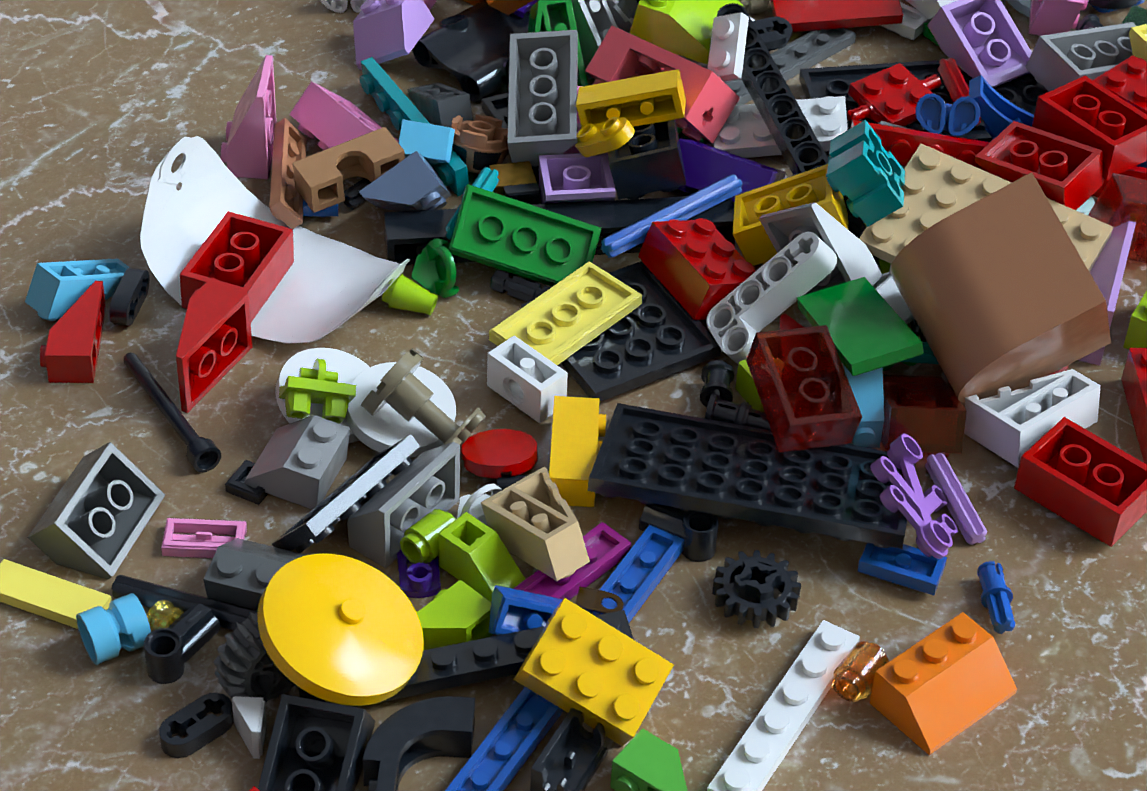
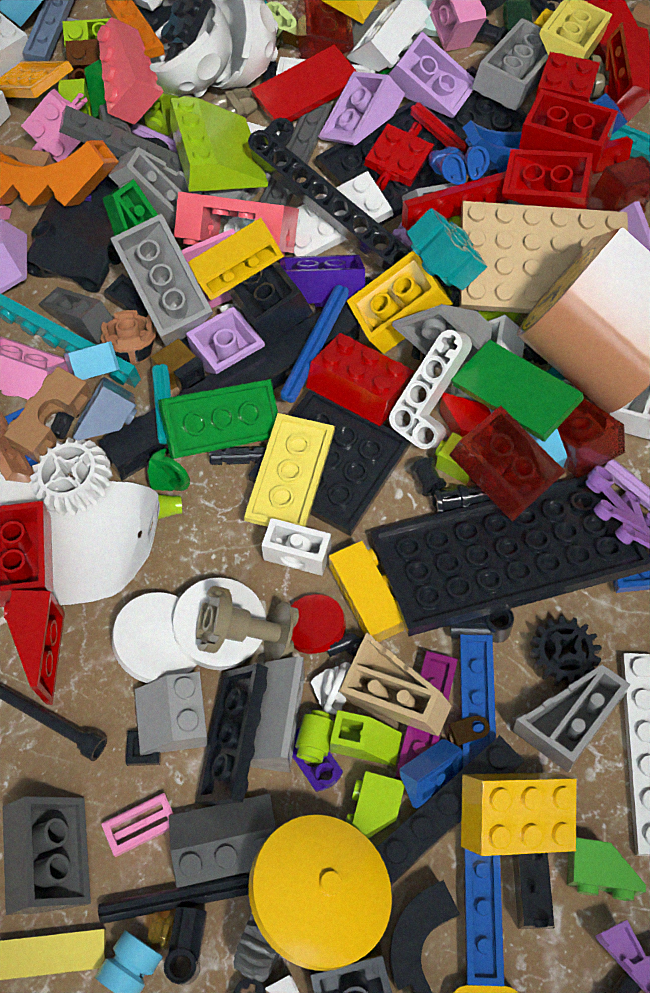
camera: 25 degrees left, 20 degrees up
(317, 387) = (170, 649): lime hips -> none
(337, 232) = (58, 489): none -> white gear
(604, 136) = (234, 300): yellow plate -> none
(722, 639) = (572, 718): none -> light grey wedge
(728, 46) = (273, 172): white plate -> none
(888, 39) = (362, 108): none -> lavender slope

